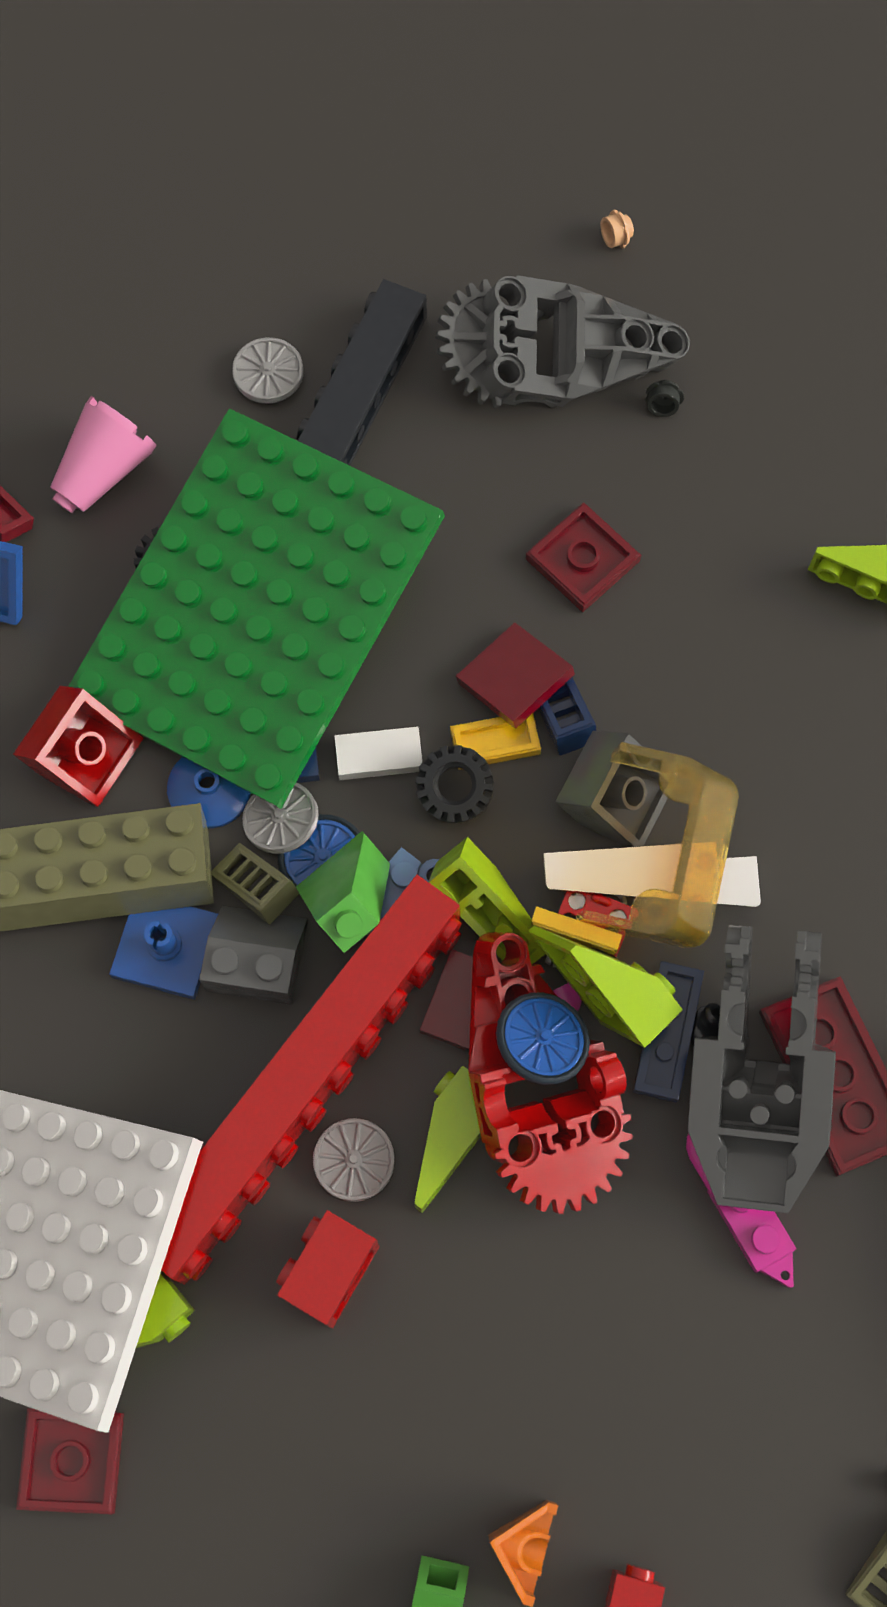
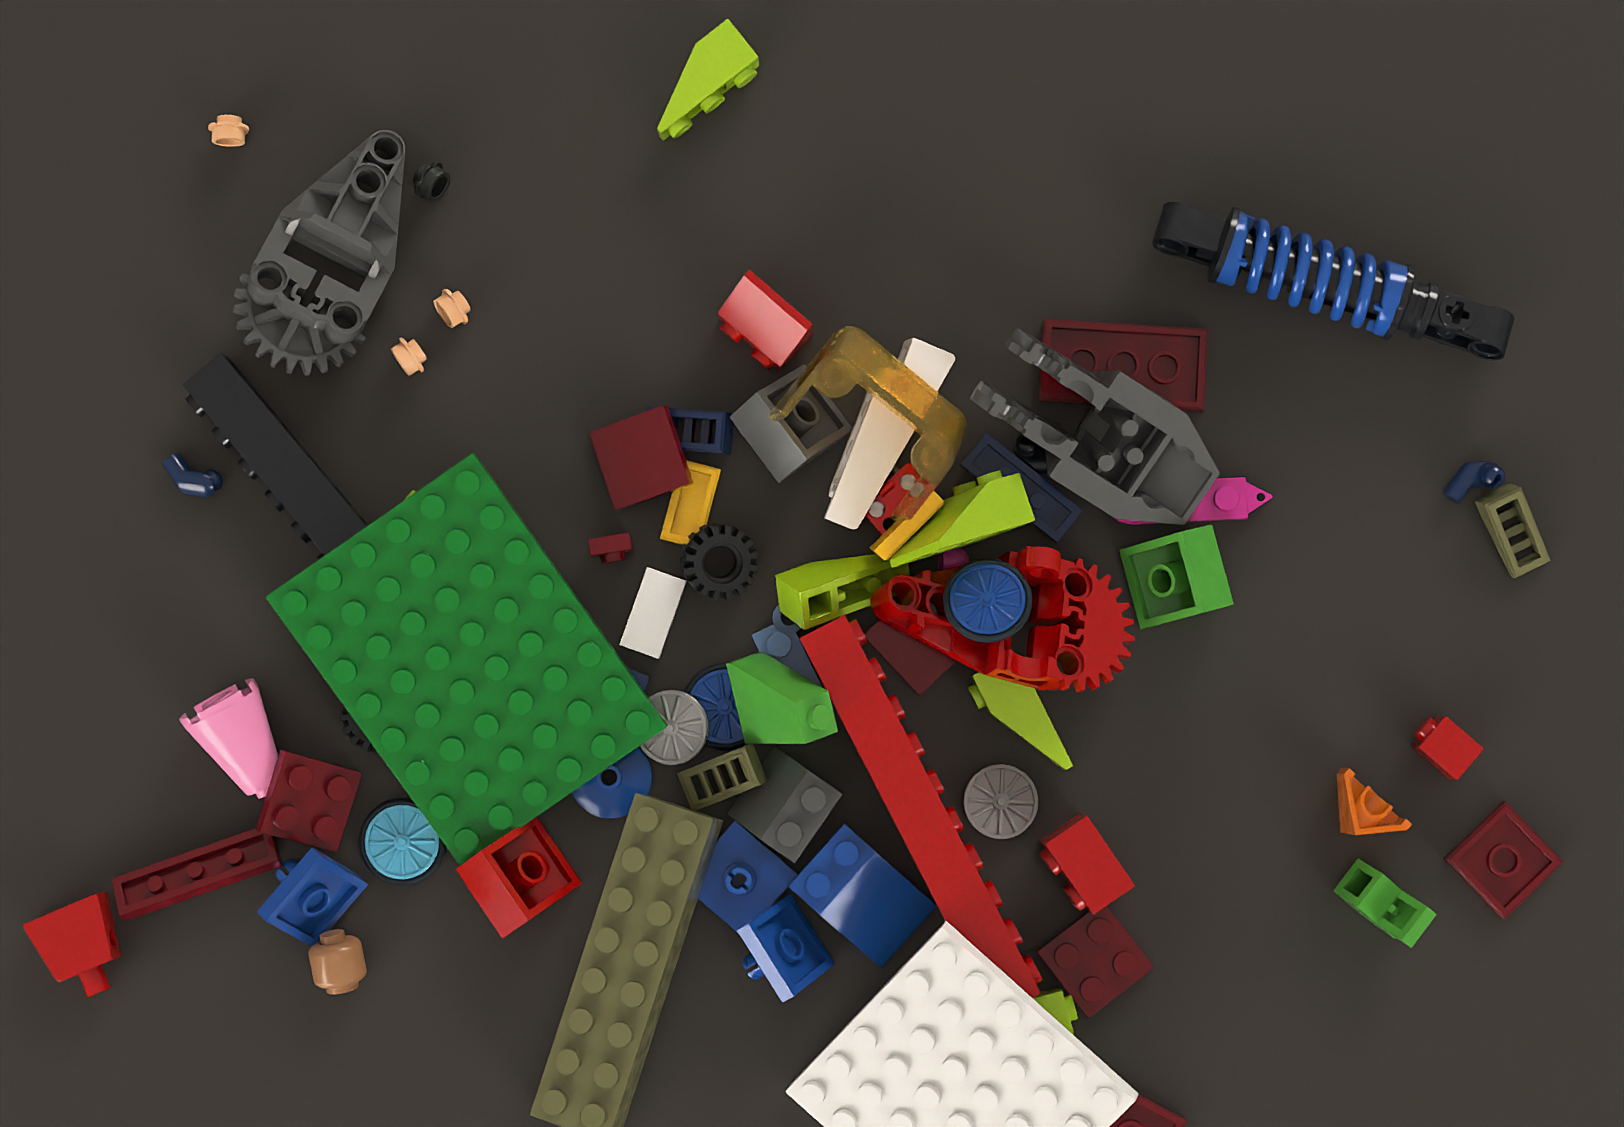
camera: 65 degrees left, 15 degrees up
(63, 635) = (400, 843): none -> medium azure wheel
(67, 538) = (308, 801): none -> dark red plate
(113, 1012) = (784, 948): none -> blue tile
(199, 1063) = (862, 895): none -> blue slope
(238, 1333) = (1095, 960): none -> dark red plate
(267, 370) = (215, 536): light grey wheel -> none
(306, 332) = (192, 482): none -> dark blue arm
(420, 686) = (611, 547): none -> dark red plate
(503, 447) = (409, 356): none -> light nougat plate
(564, 463) = (452, 308): none -> light nougat plate
(583, 557) = (552, 337): dark red tile -> none
(662, 1226) = (1176, 576): none -> bright green slope
(697, 714) = (764, 322): none -> slope

